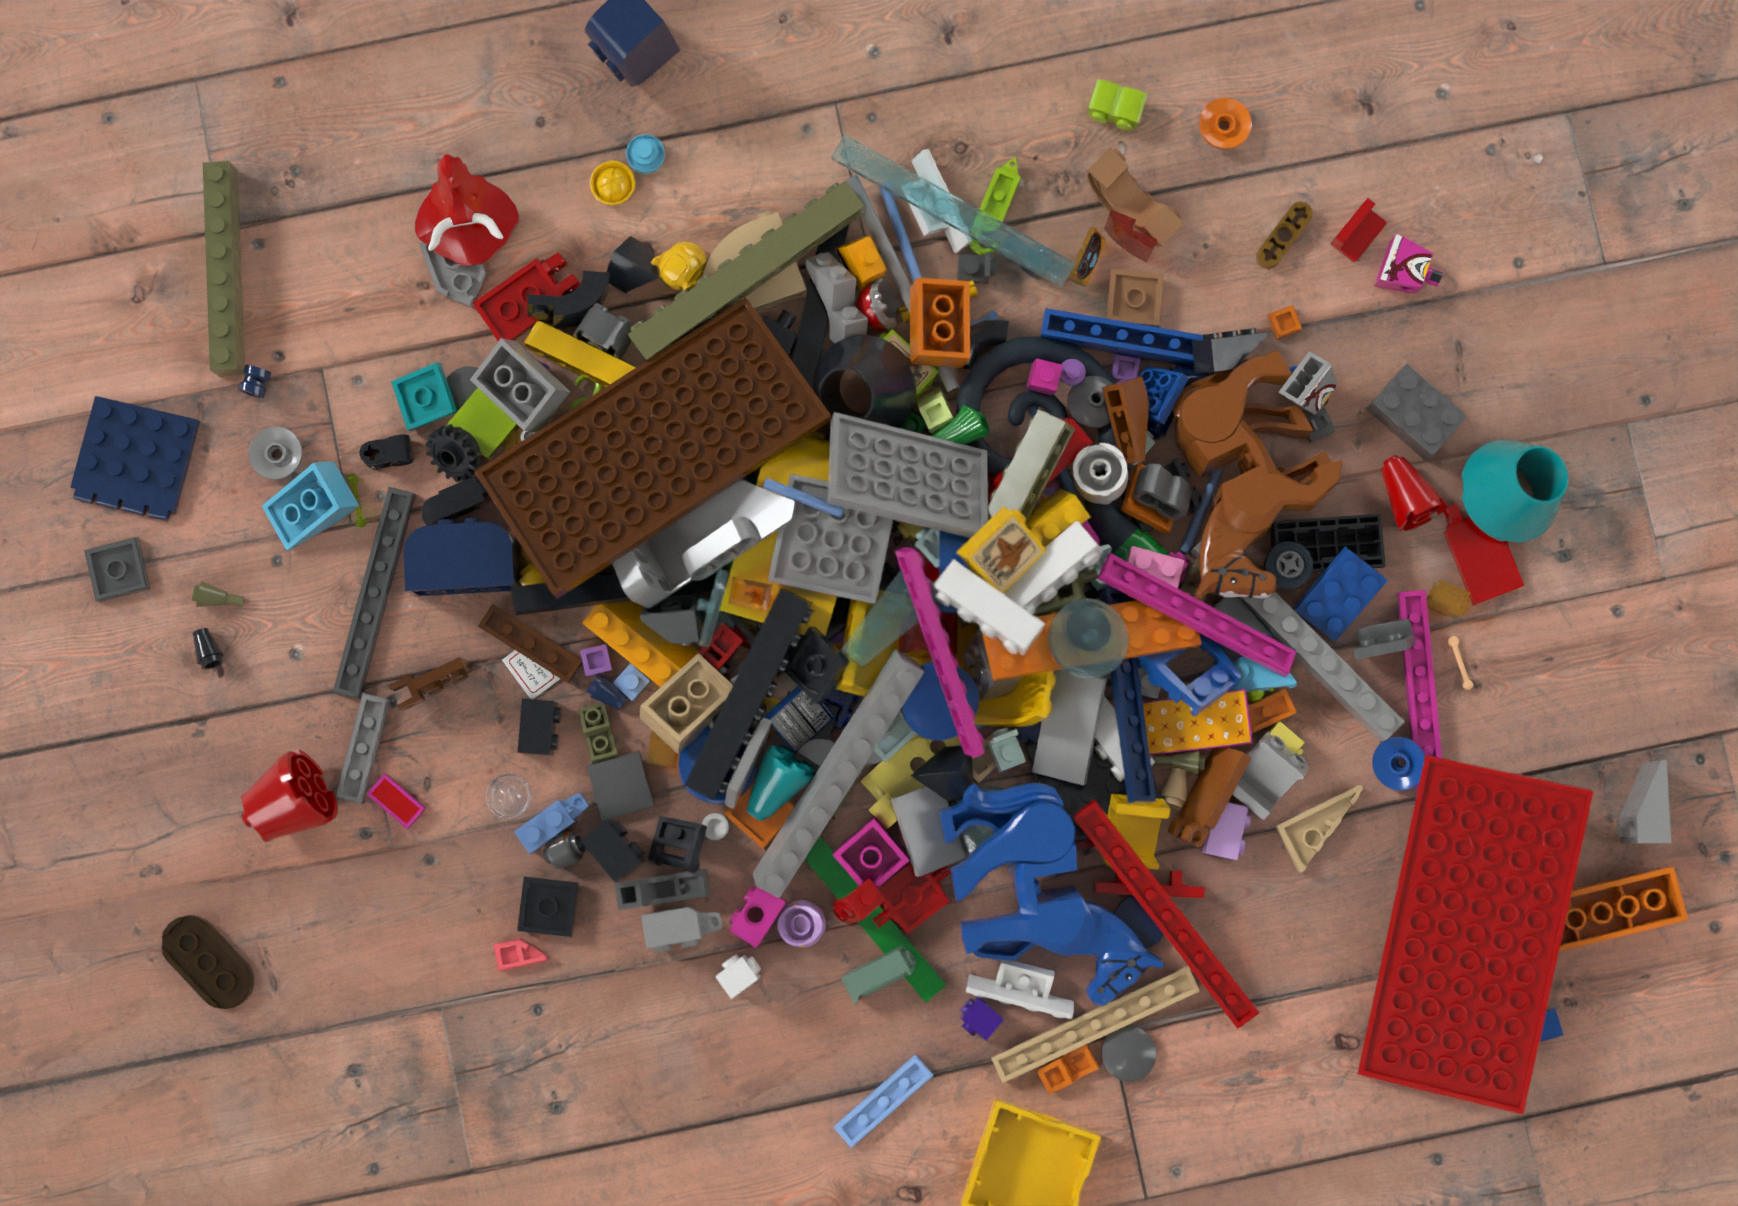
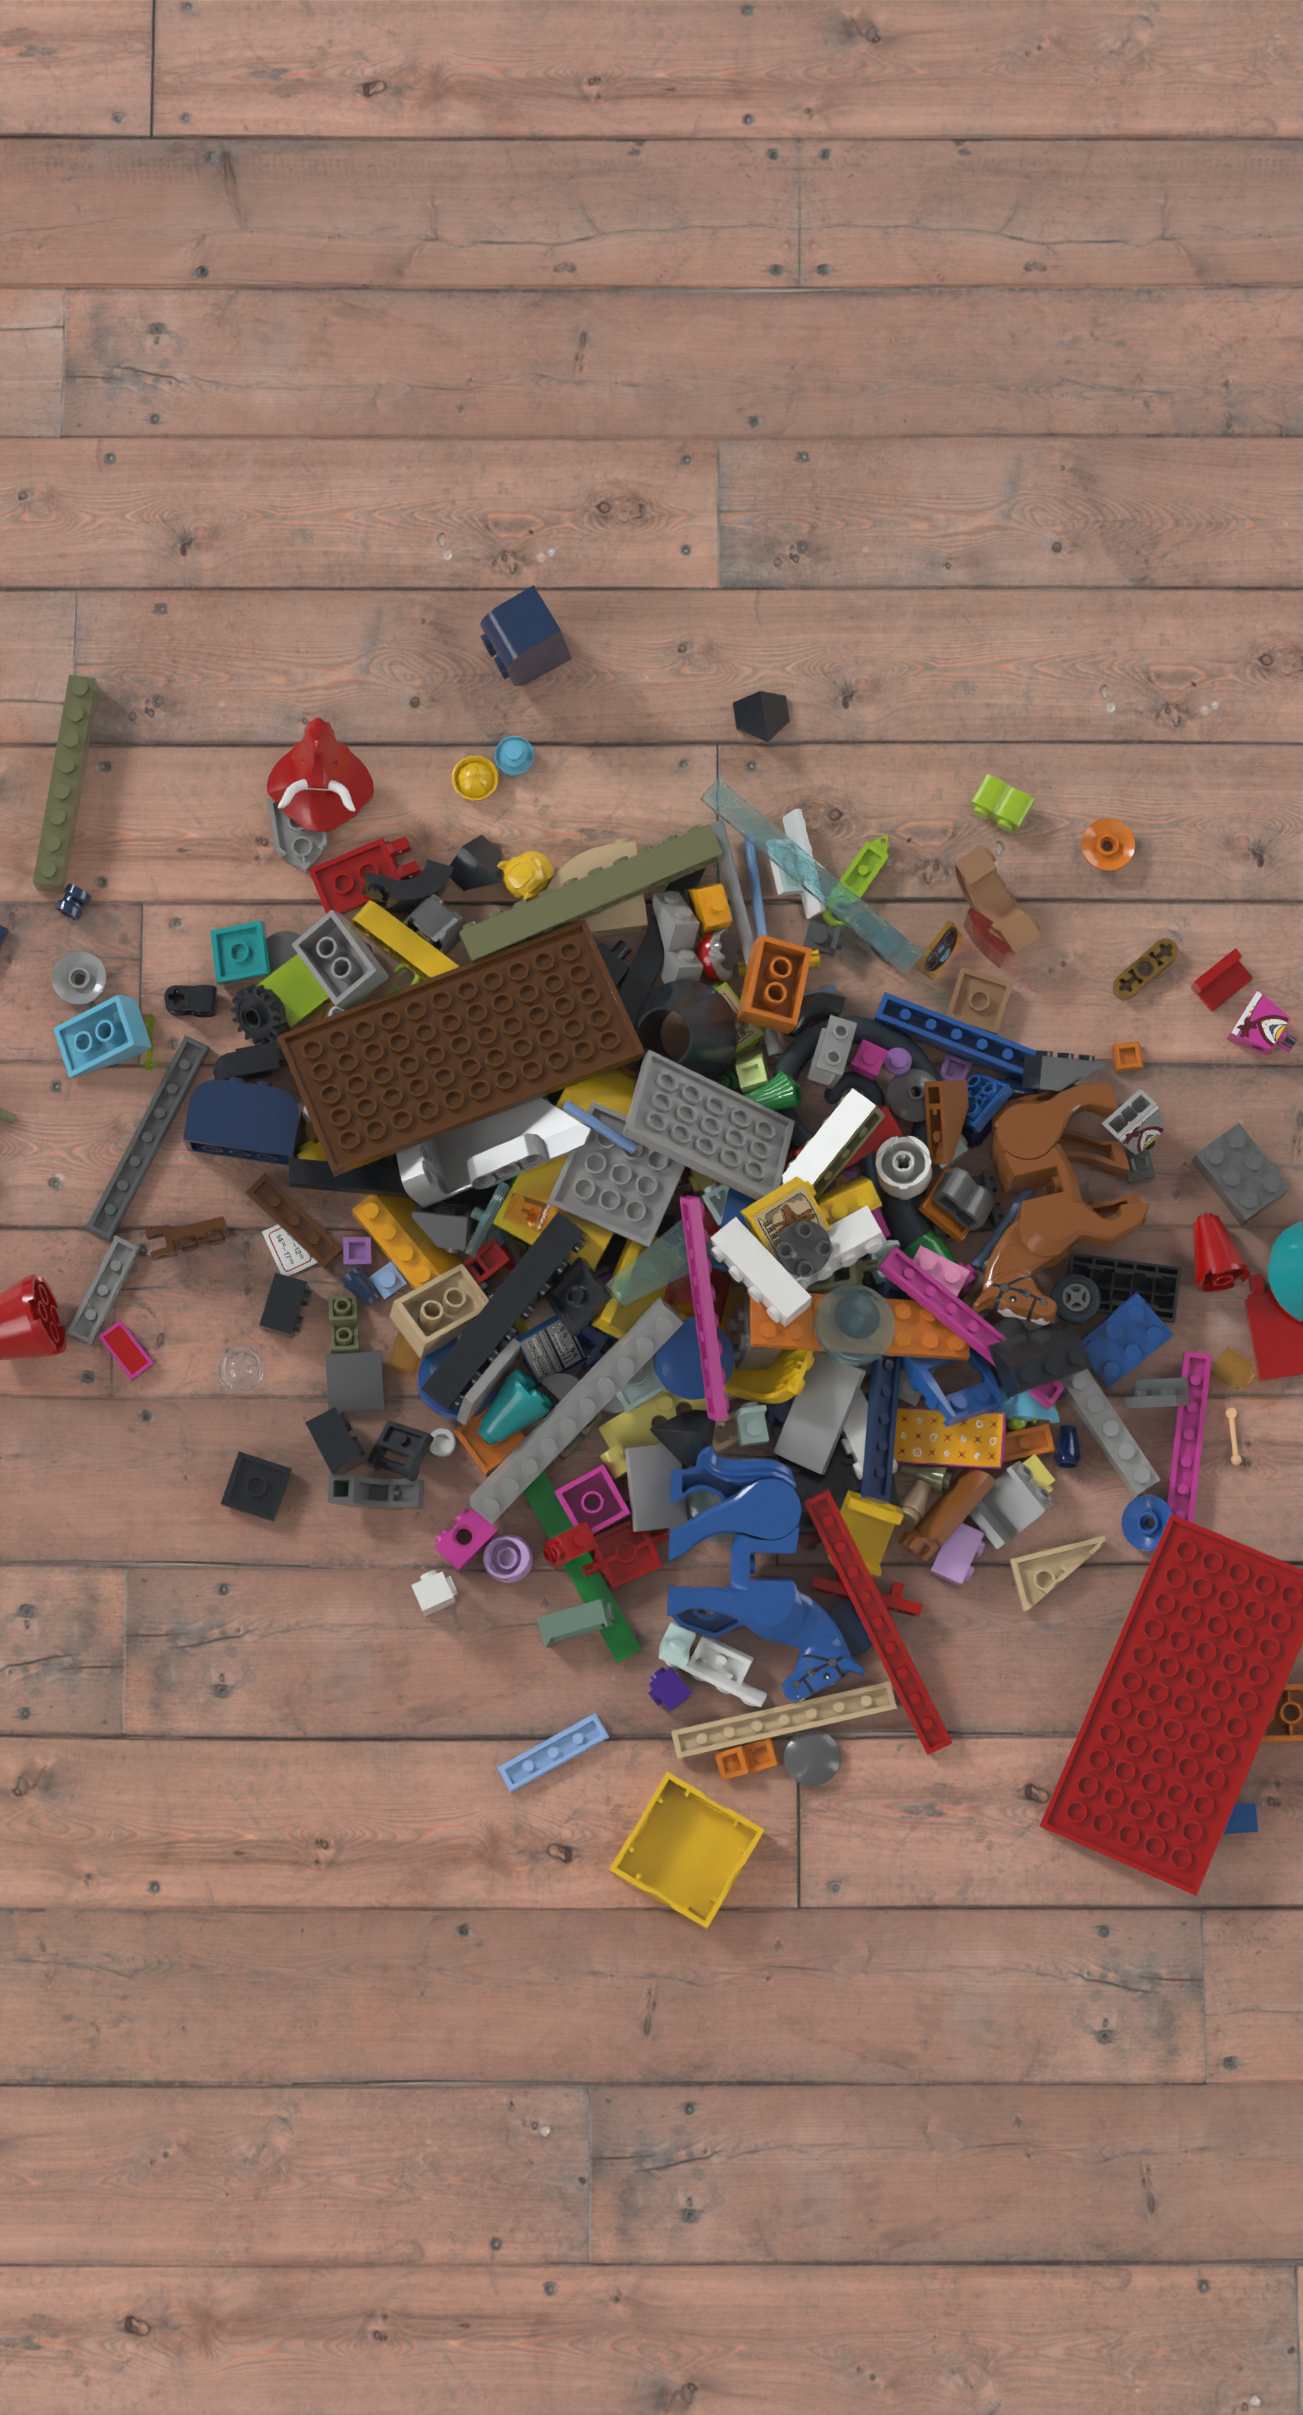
camera: 10 degrees right, 5 degrees down
(517, 954) = (215, 1528): coral tile -> none
(551, 822) = (278, 1403): medium blue hinge -> none
(564, 849) = (285, 1432): dark grey head -> none
(678, 926) = (384, 1532): light grey hinge -> none
(871, 66) = (761, 714): none -> black slope
(978, 977) = (676, 1645): none -> light aqua bracket
(1009, 377) = (831, 1052): none -> light grey panel
(1025, 576) = (803, 1248): none -> dark grey dish
(1269, 631) = (1039, 1358): none -> black slope
(1308, 708) = (1067, 1448): none -> clear blue cone

